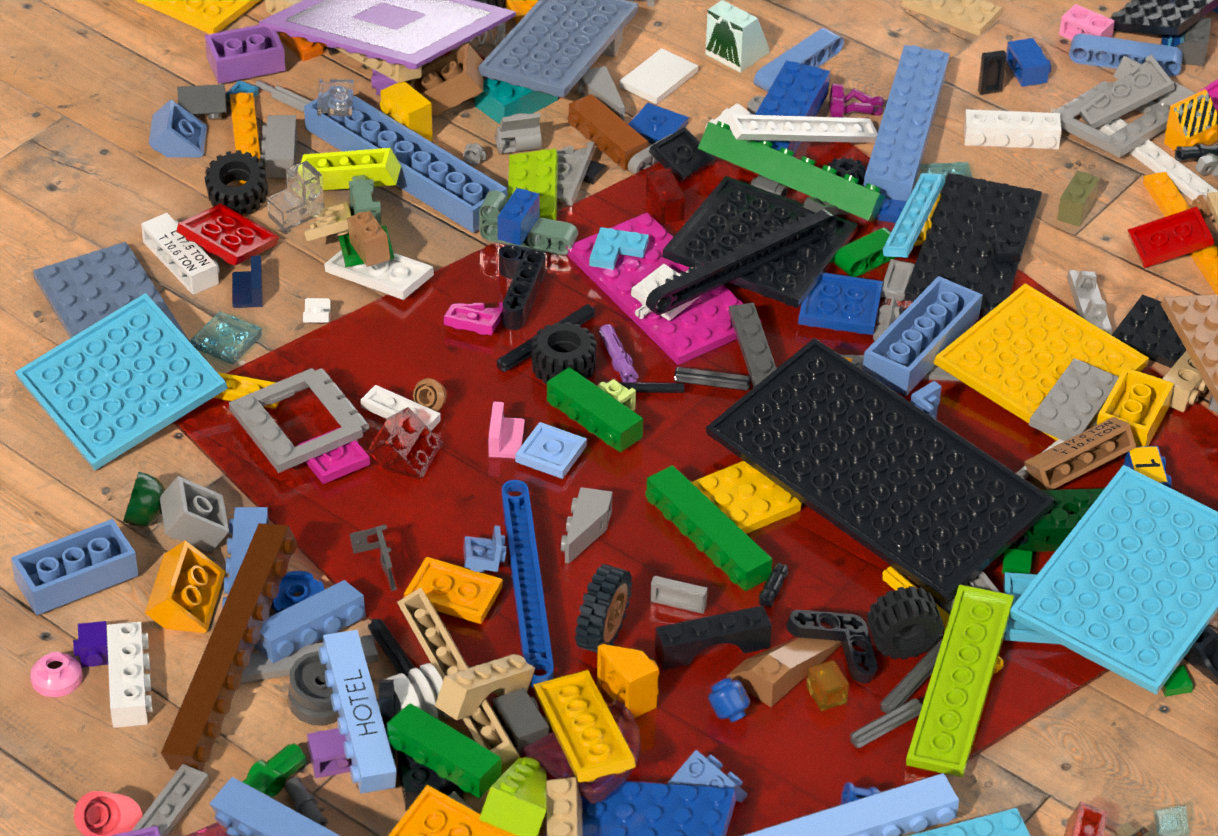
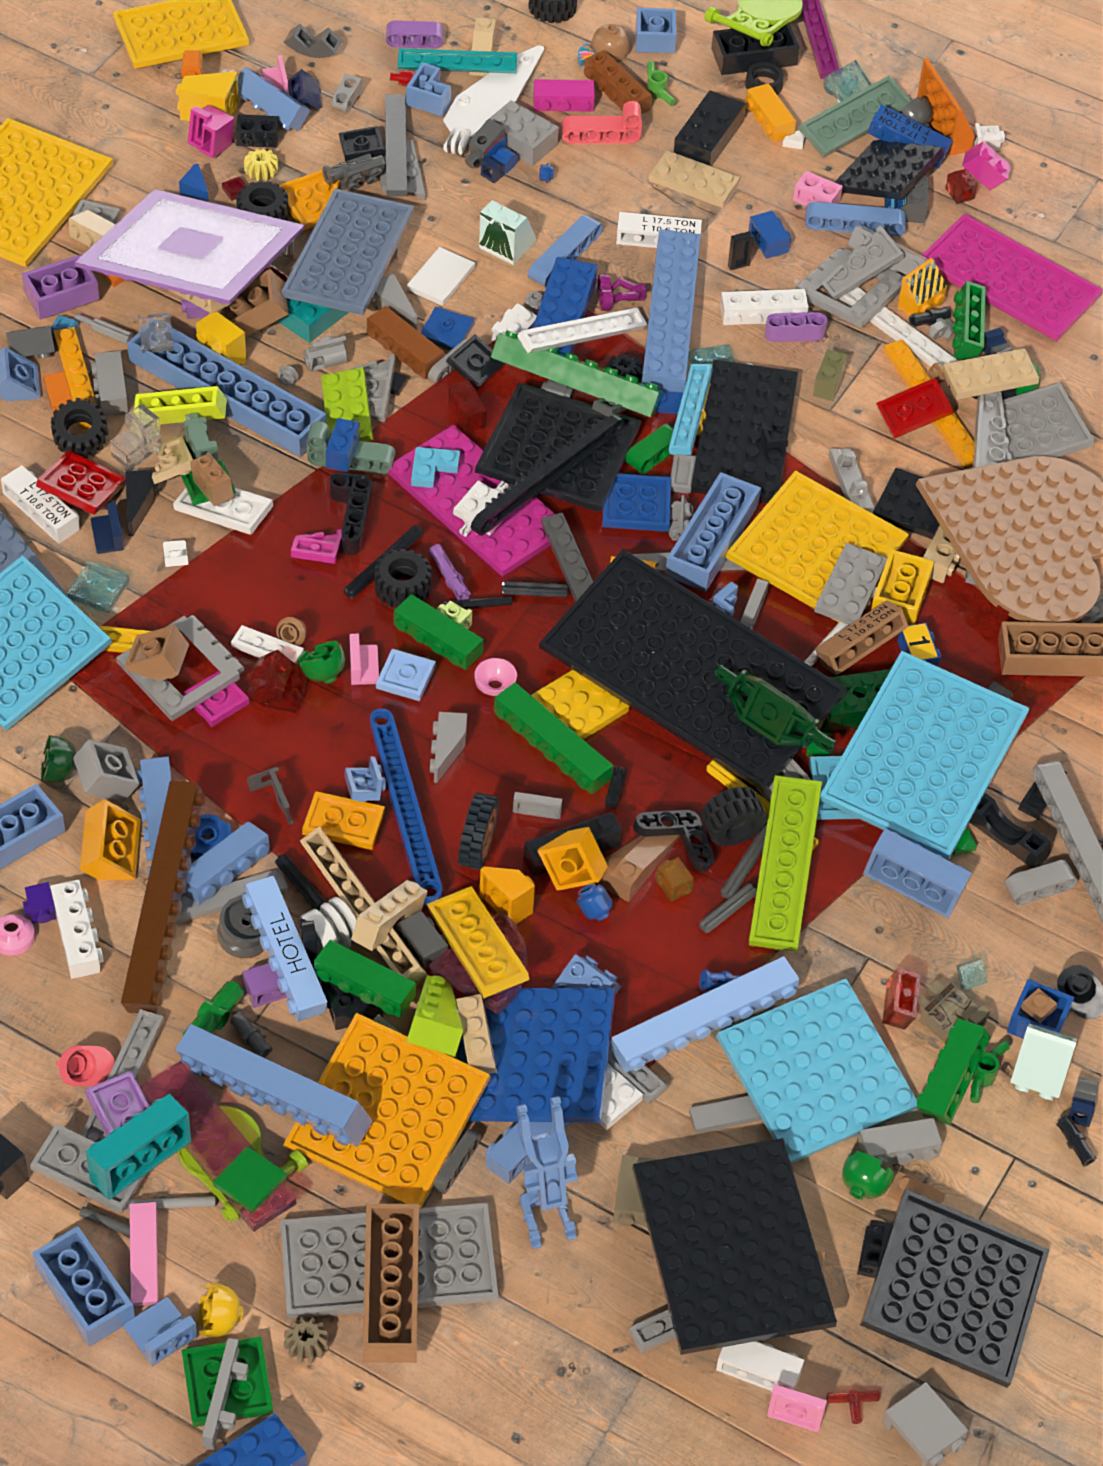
camera: 10 degrees left, 10 degrees up
(221, 144) = (57, 389): none -> orange tile
(274, 399) = (158, 654): none -> medium nougat slope
(288, 256) = (139, 497): none -> black slope
(459, 429) = (323, 663): none -> green cylinder
(650, 454) = (494, 670): none -> bright pink piece
(709, 650) = (573, 859): none -> light orange slope
(886, 47) = (644, 229): none -> white brick
(963, 410) = (755, 603): none -> light grey beam
(964, 514) = (772, 711): none -> dark green plate
(1045, 150) = (795, 327): none -> medium lavender beam
(1116, 704) = (917, 873): none -> medium blue brick

